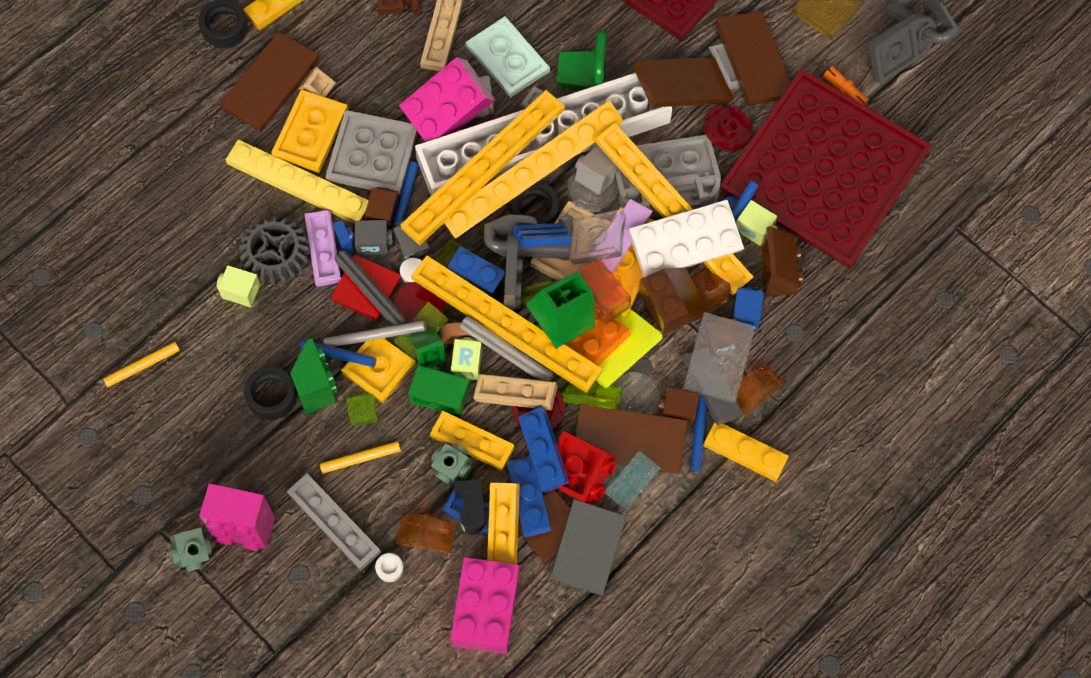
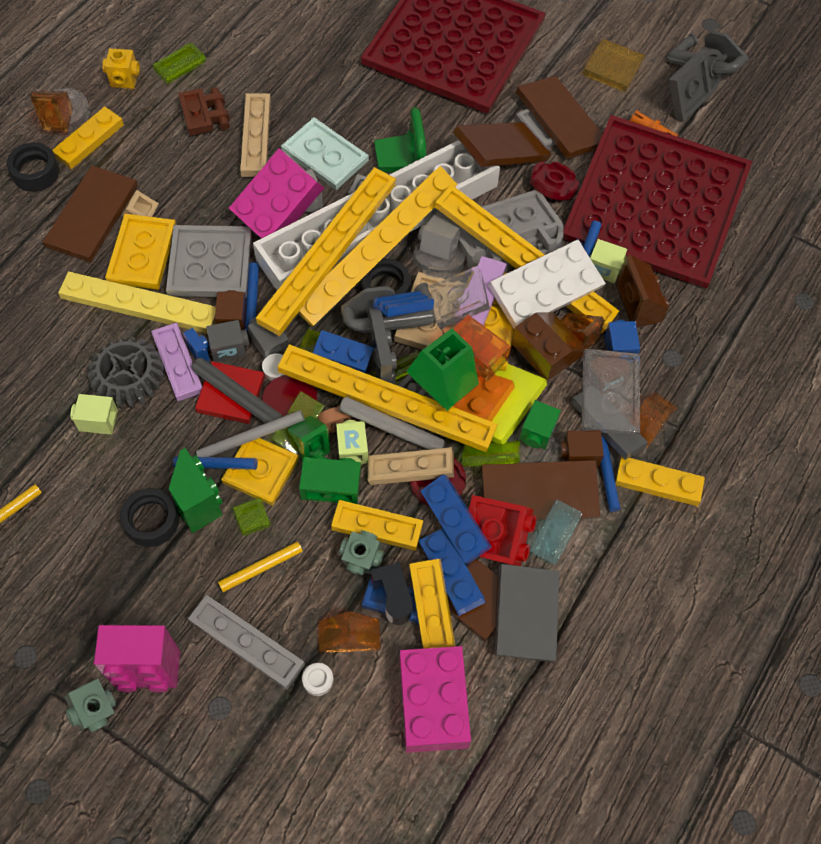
camera: 15 degrees left, 5 degrees down
(643, 377) = (539, 425): none -> green brick

